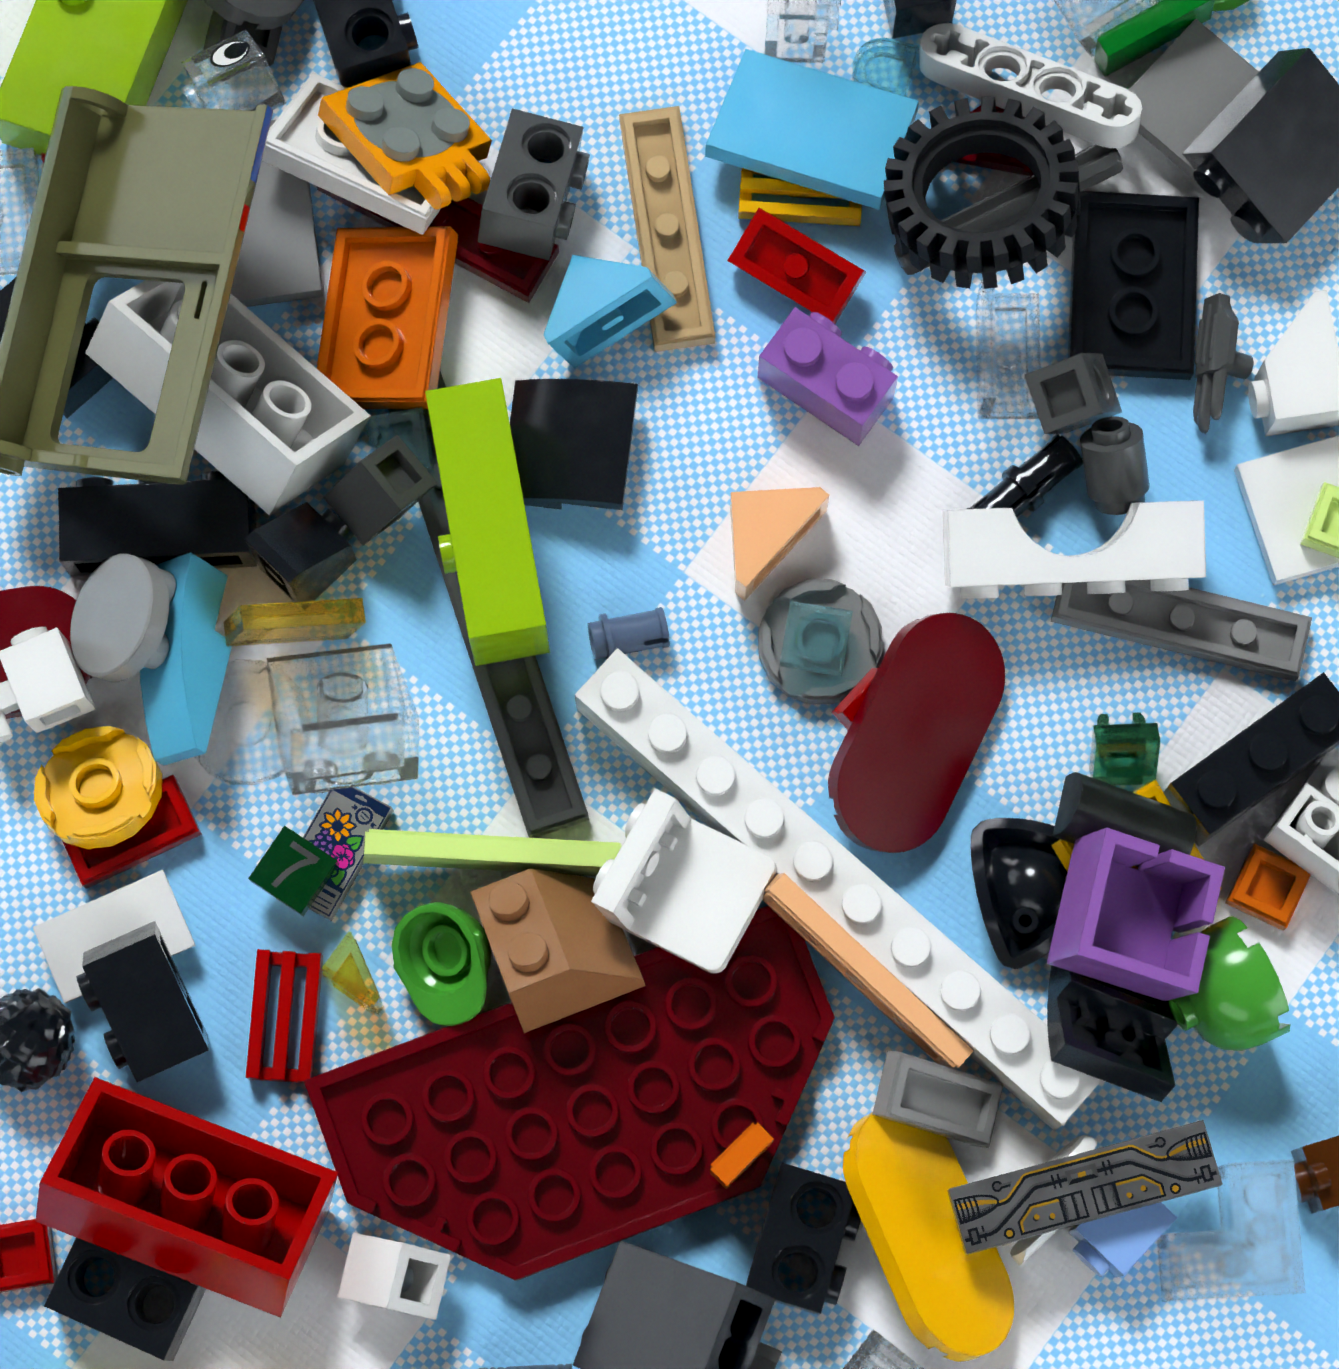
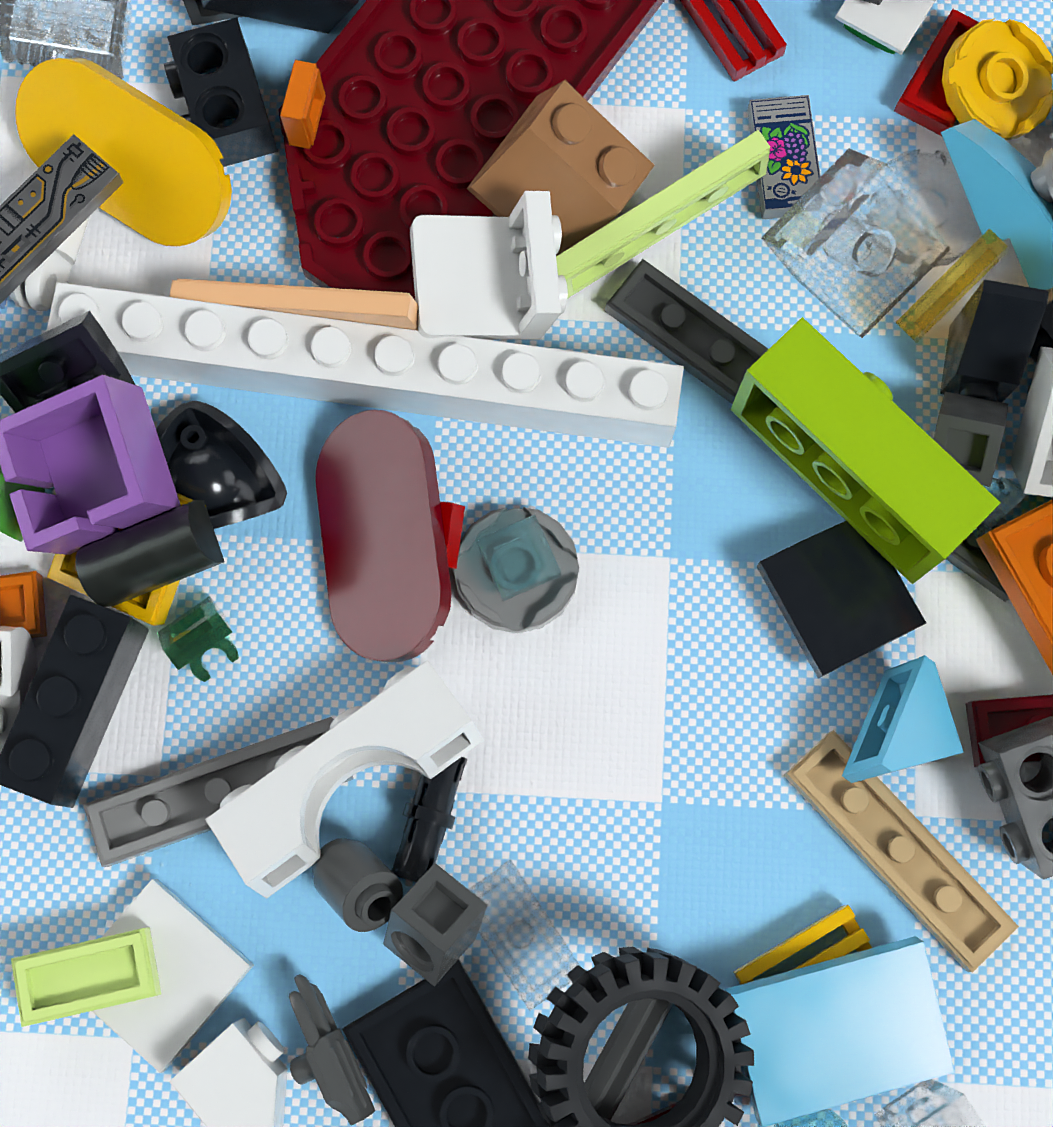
camera: 145 degrees right, 0 degrees up
(293, 871) = (803, 109): dark green tile -> none
(350, 975) = (697, 67): clear yellow slope -> none
(443, 962) = (641, 111): bright green hat -> none
(628, 633) = (678, 466): sand blue pin -> none
(768, 528) = (625, 626): light nougat slope -> none
(796, 266) = (762, 886): red plate -> none
(828, 374) = (666, 797): medium lavender brick -> none
(937, 1099) = (183, 248): light grey tile -> none

